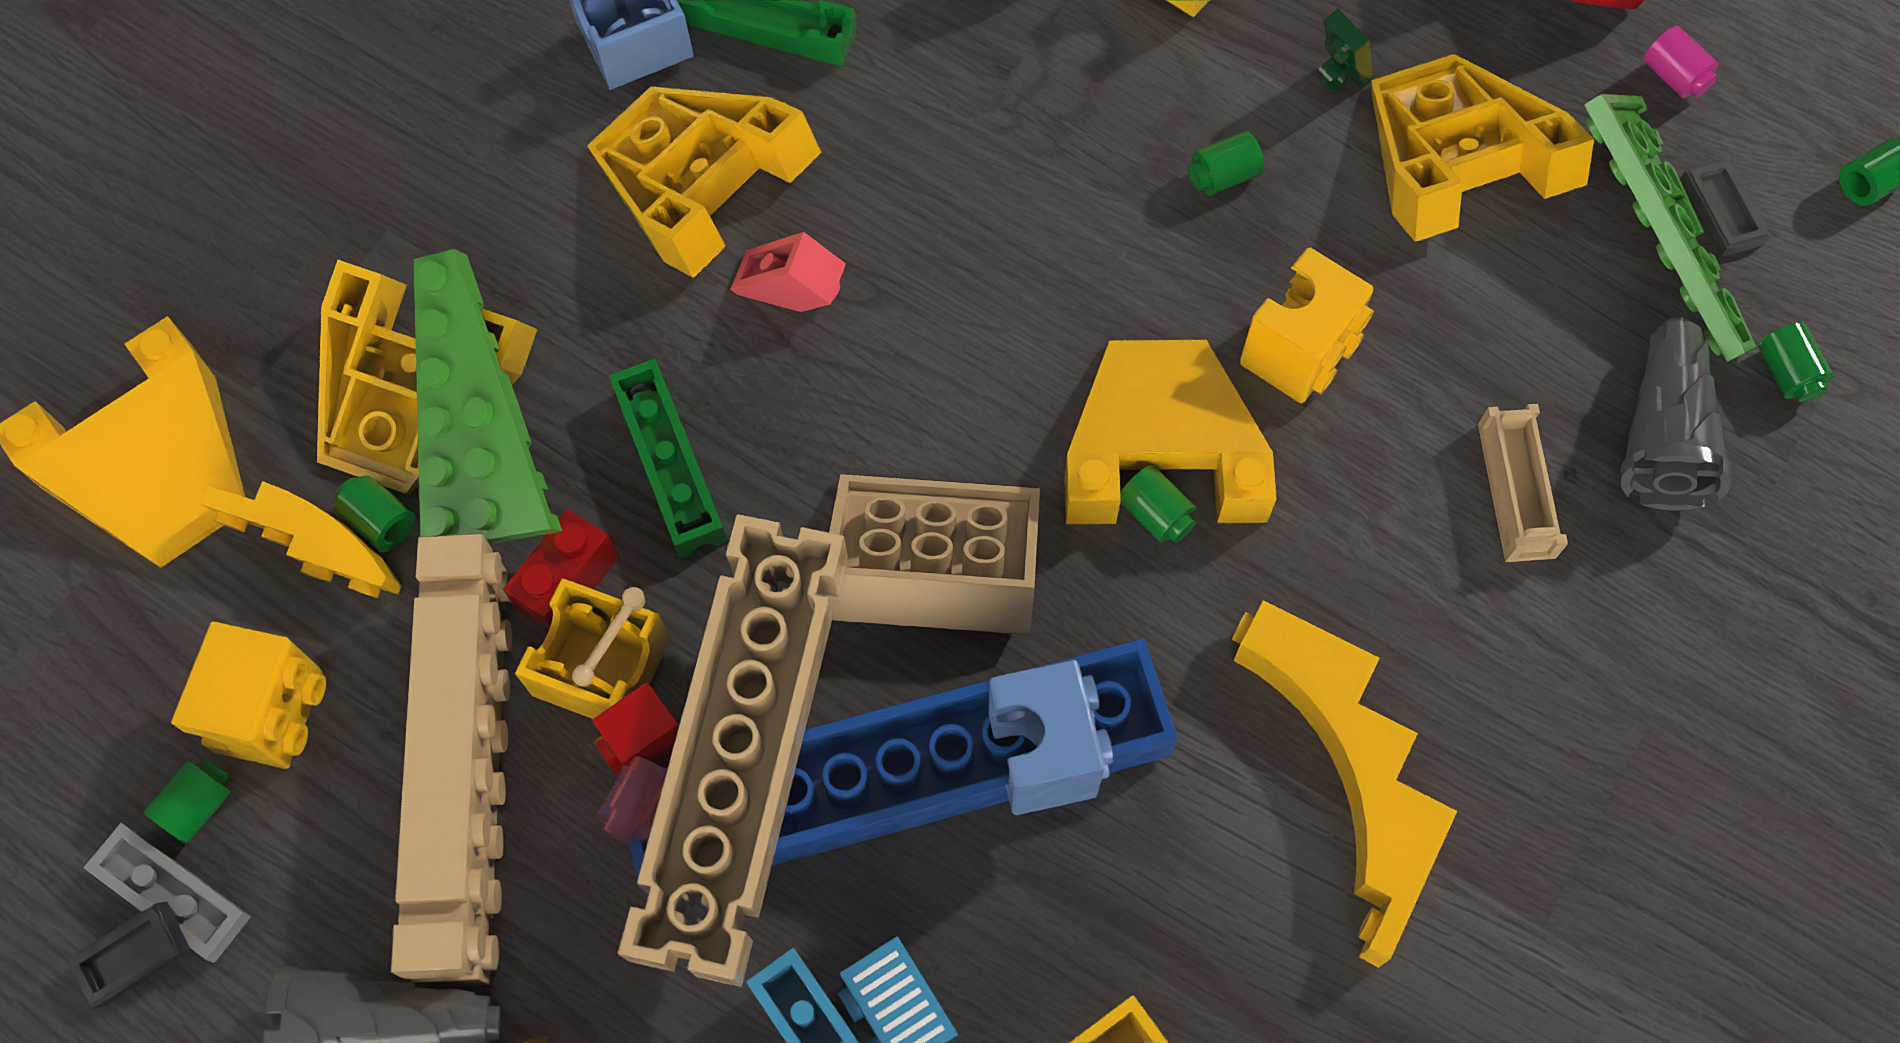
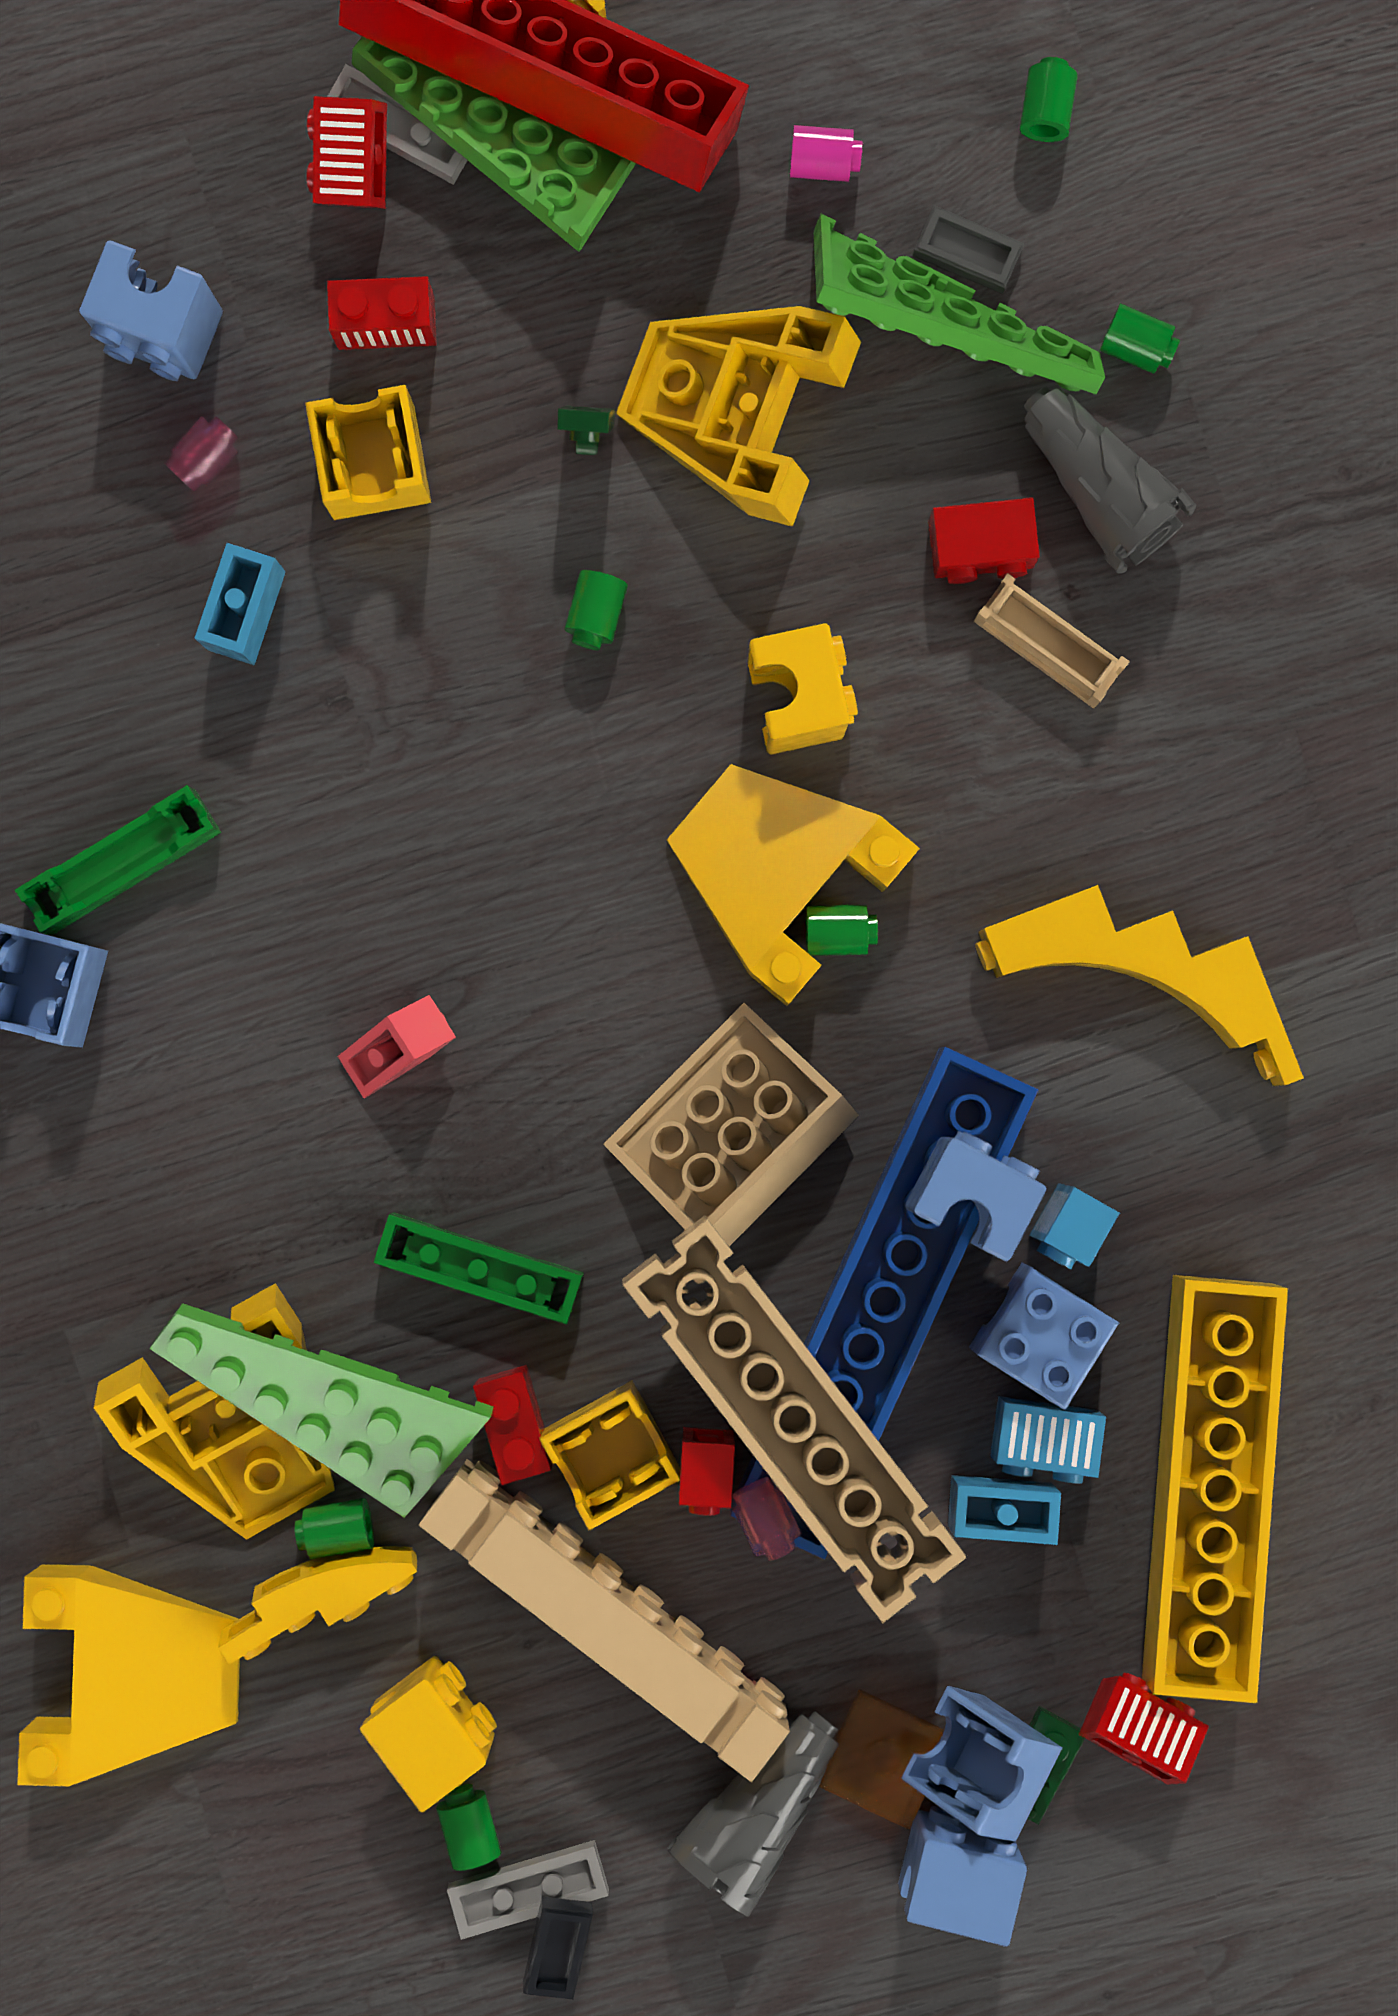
camera: 50 degrees left, 20 degrees up
(633, 601) = (605, 1402): tan hinge -> none
(687, 153) = (205, 1039): yellow wedge -> none
(982, 922) = (1044, 1336): none -> medium blue piece
(1093, 867) = (1072, 1226): none -> dark azure brick
(1544, 370) = (984, 539): none -> red brick

